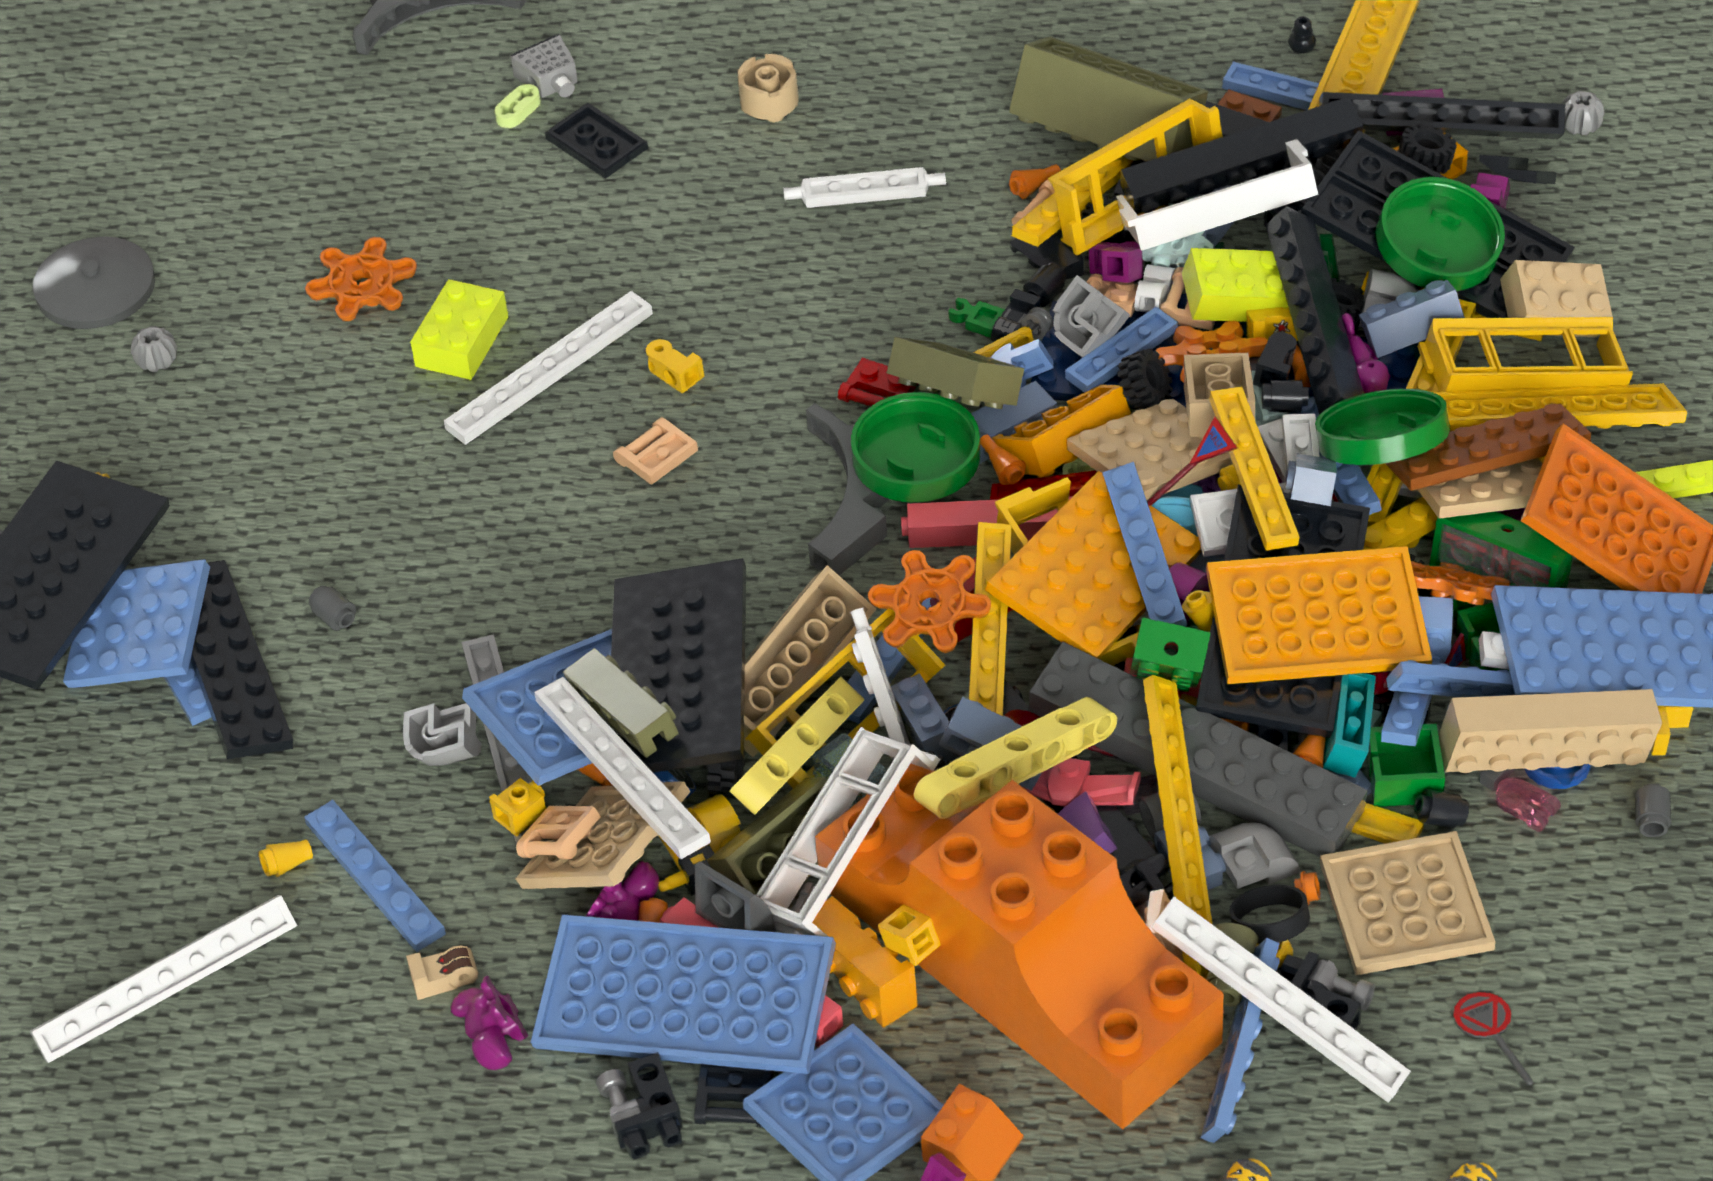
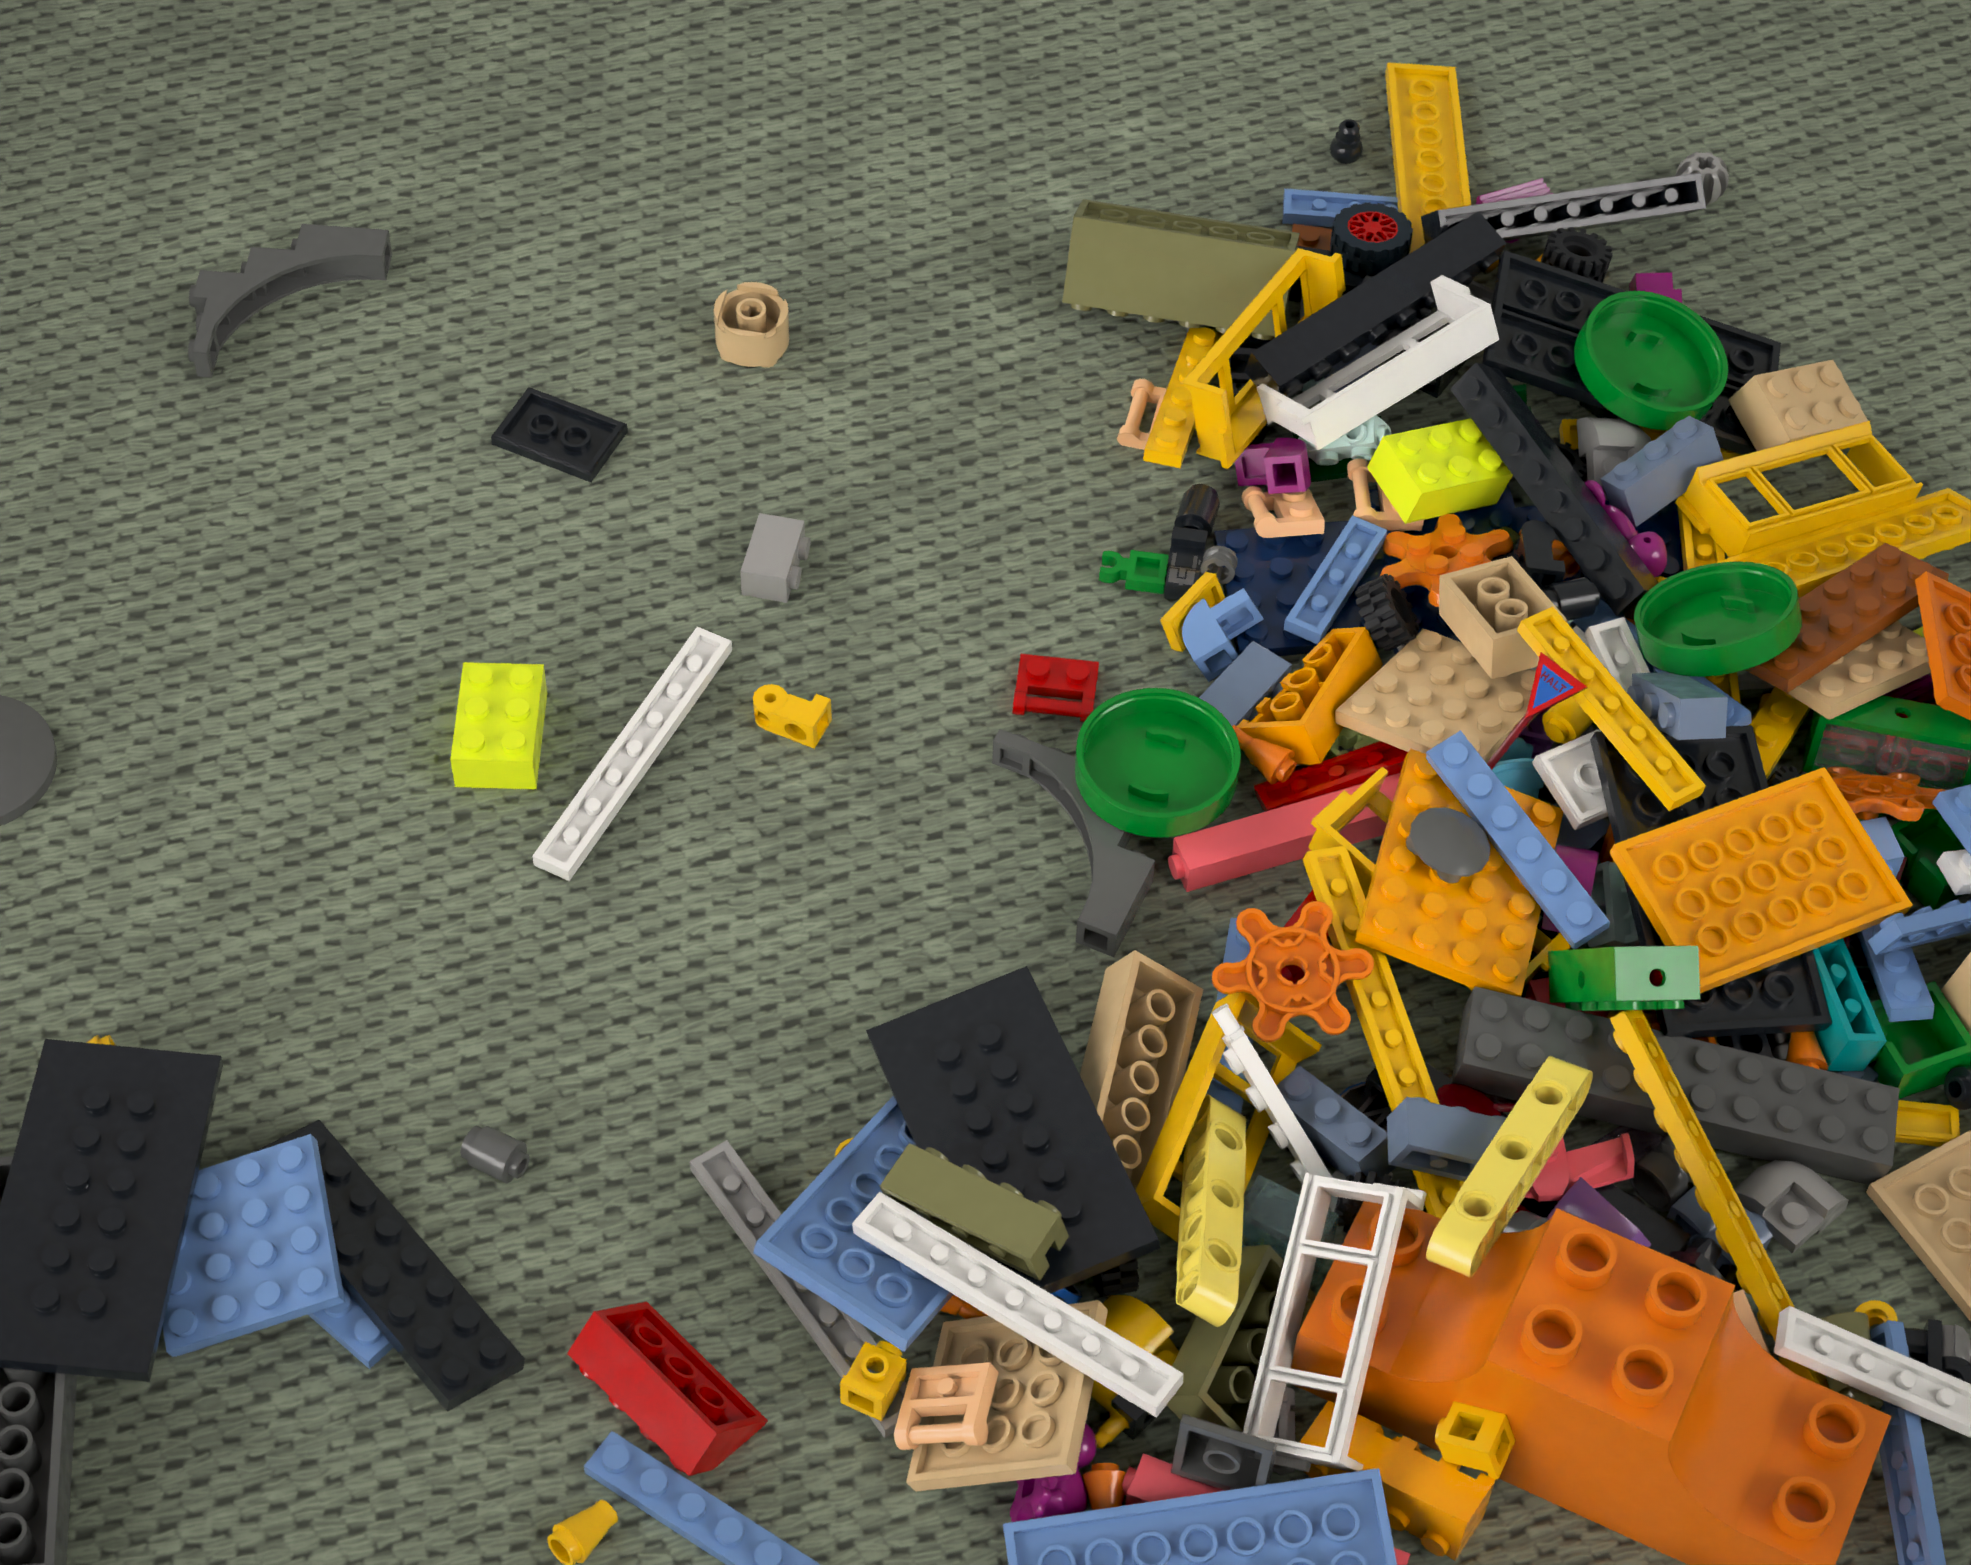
camera: 25 degrees left, 5 degrees up
(153, 348) = (99, 841): light grey piece -> none
(368, 264) = (337, 661): orange plate -> none
(380, 779) = (665, 1386): none -> red slope
(441, 735) = (722, 1302): light grey brick -> none
(519, 107) = (432, 406): yellowish green beam -> none
(546, 66) = (458, 351): light grey torso -> none
(659, 457) = (830, 839): light nougat plate -> none
(709, 254) = (774, 558): none -> light grey brick
(864, 187) = (922, 430): white plate -> none
(955, 373) = (1163, 653): olive brick -> none
(1027, 181) = (1114, 384): orange cone -> none
(1051, 251) = (1194, 470): black slope -> none
(1086, 317) = (1283, 548): light grey brick -> none
(1088, 538) = (1449, 843): none -> dark grey dish
(1153, 288) = (1332, 492): white leg -> none
(1199, 609) = (1615, 901): yellow cone -> none
(1269, 321) = (1499, 509): yellow leg -> none
(1270, 101) = (1370, 237): none -> black wheel
(1273, 895) = (1854, 1247): black tyre -> none
(1309, 885) = (1871, 1228): orange plate -> none
(1517, 169) = (1658, 257): black slope -> none

